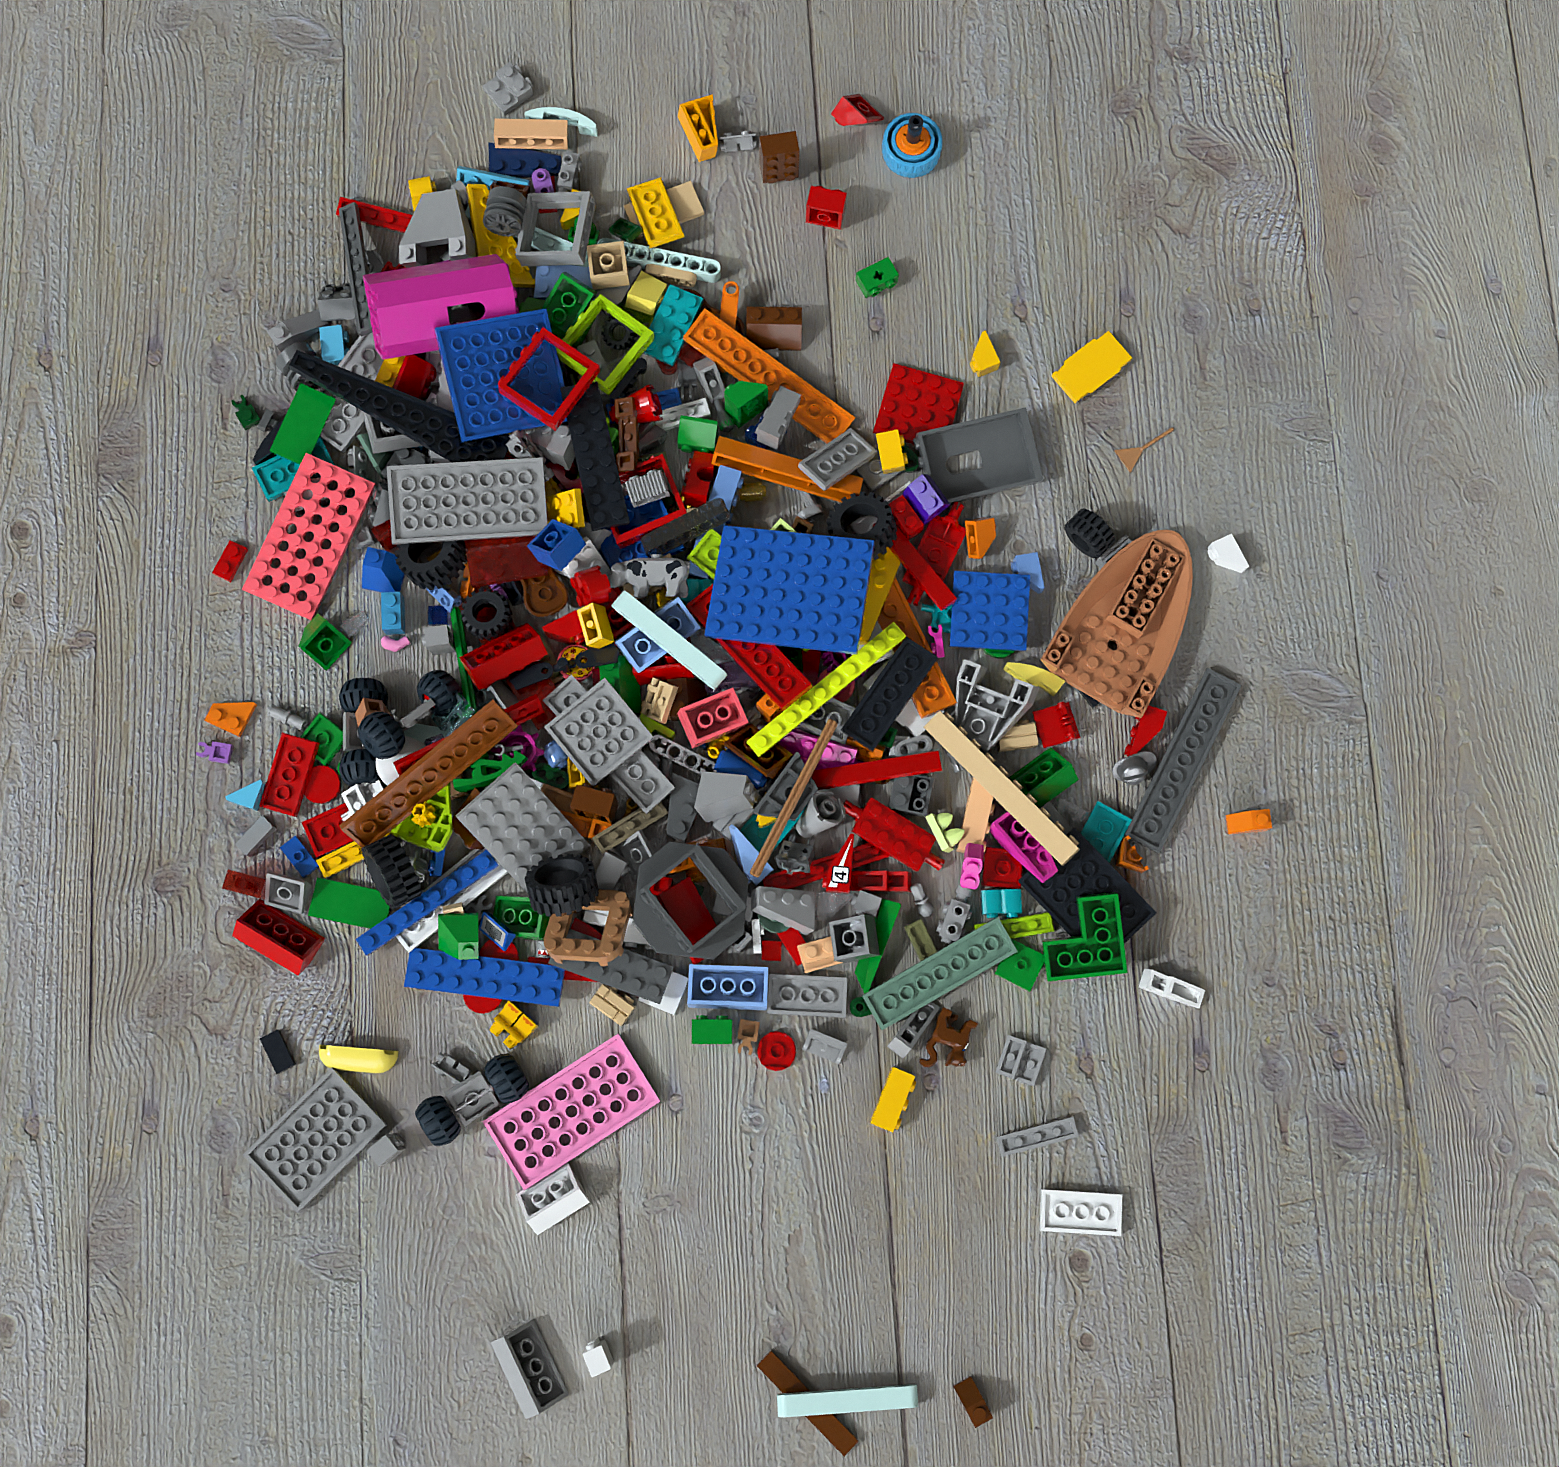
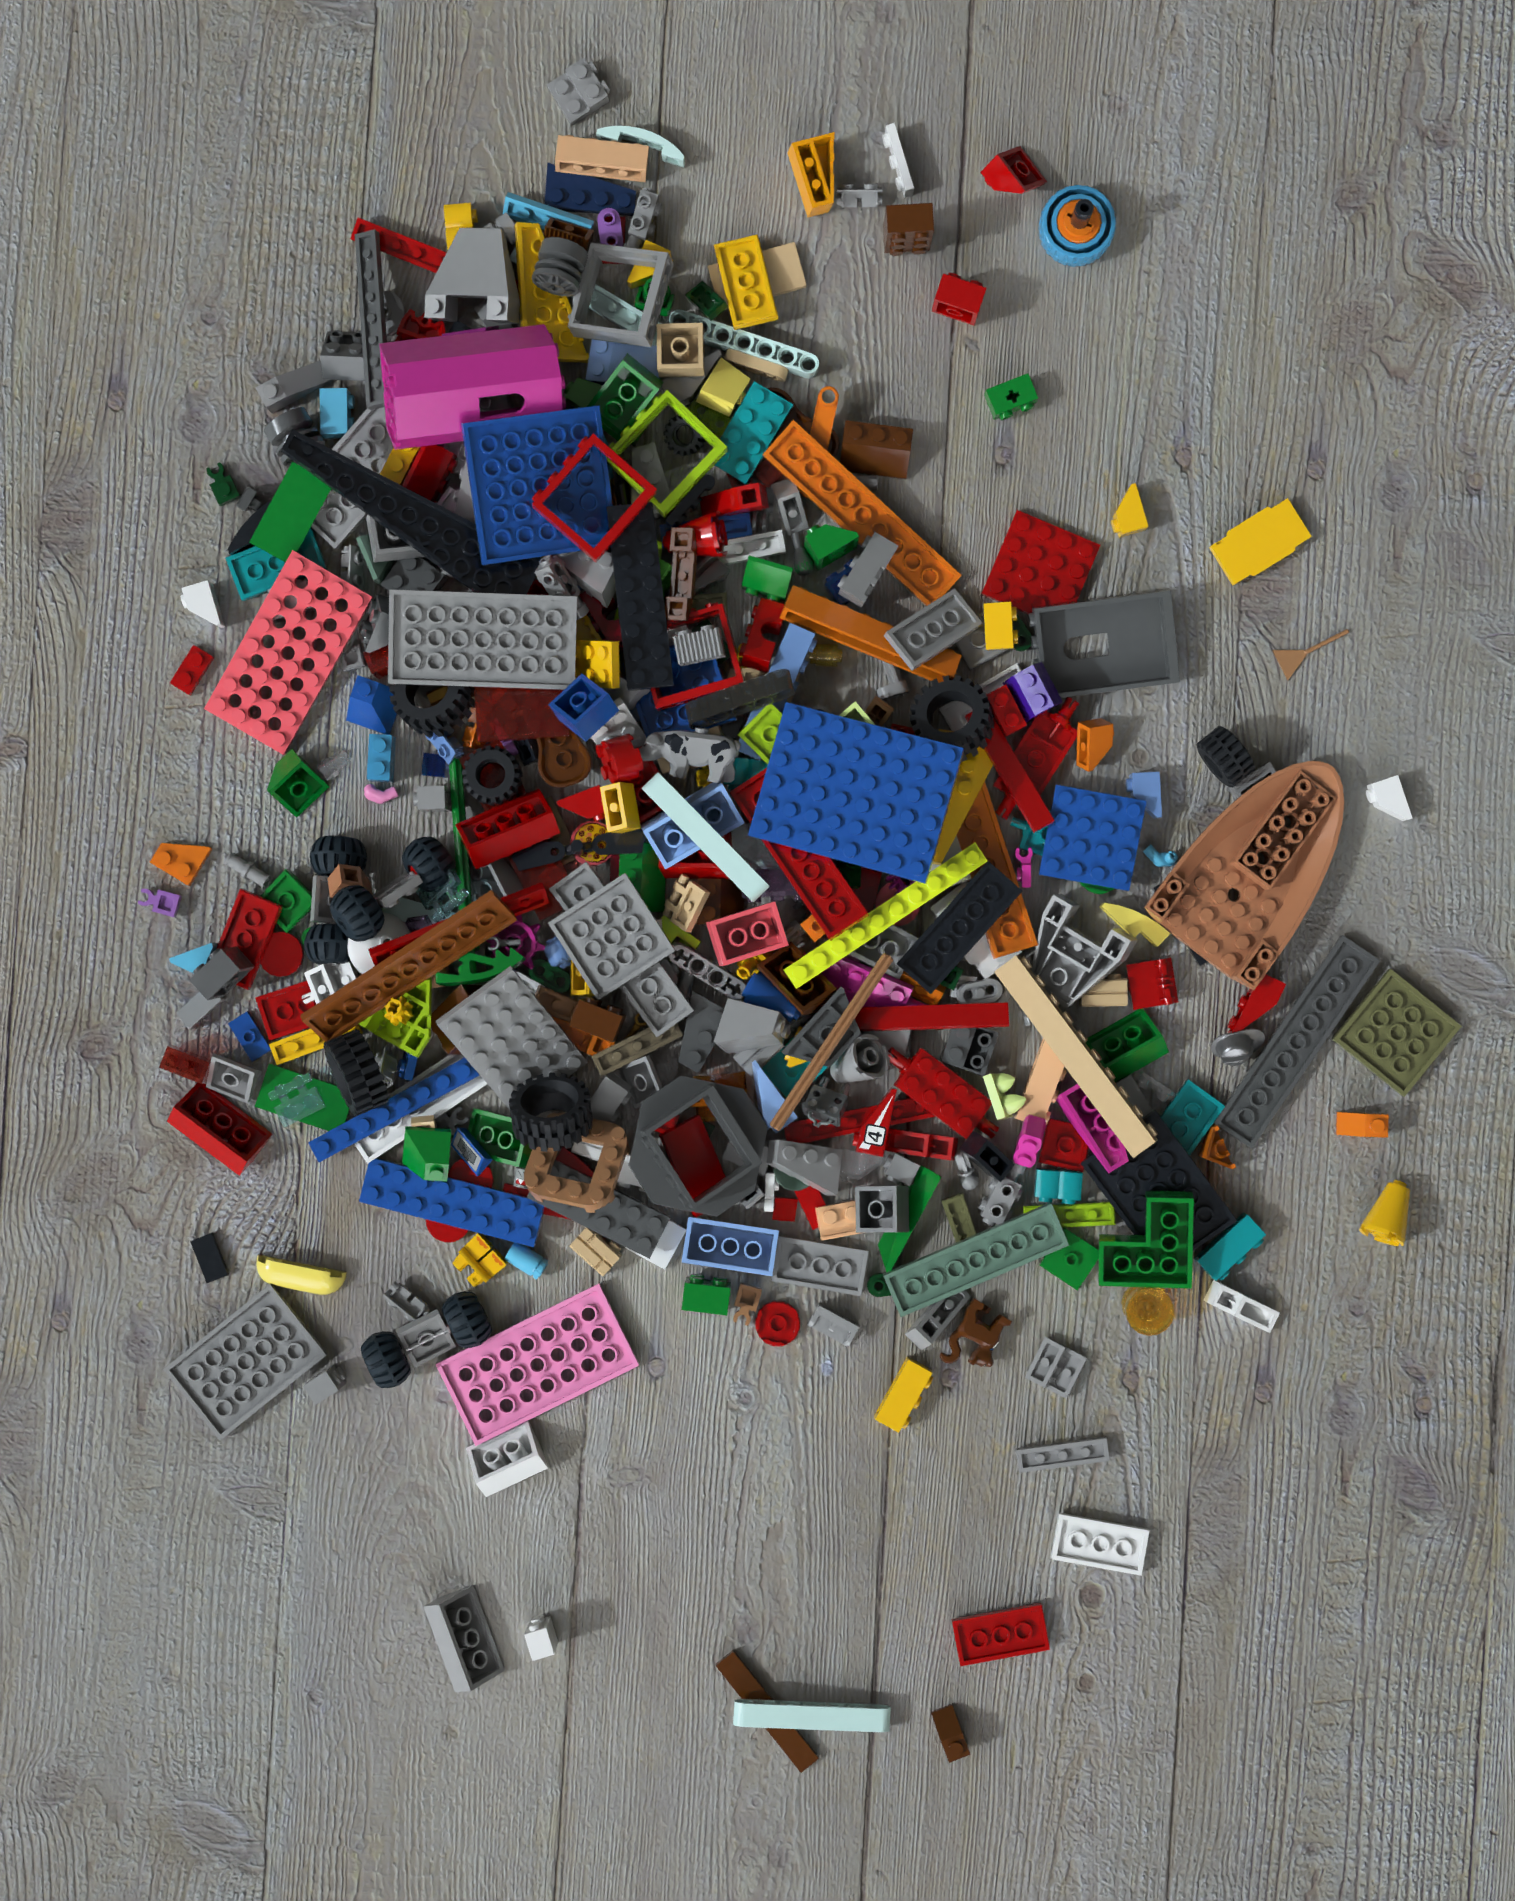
camera: 10 degrees right, 10 degrees up
(235, 505) = (202, 601): none -> white slope
(270, 801) = (221, 972): none -> dark grey brick
(347, 908) = (299, 1106): none -> clear light blue plate
(553, 1020) = (526, 1260): none -> medium azure piece
(667, 376) = (736, 500): none -> red slope
(764, 110) = (897, 160): none -> white plate
(937, 883) = (986, 1156): none -> black brick
(1005, 1305) = (1000, 1634): none -> red plate
(1049, 624) = (1160, 859): none -> medium azure arm
(1102, 1002) = (1149, 1321): none -> clear yellow wheel
(1154, 938) = (1230, 1247): none -> teal brick
(1264, 743) = (1396, 1032): none -> olive plate
(1283, 895) = (1389, 1215): none -> yellow cone

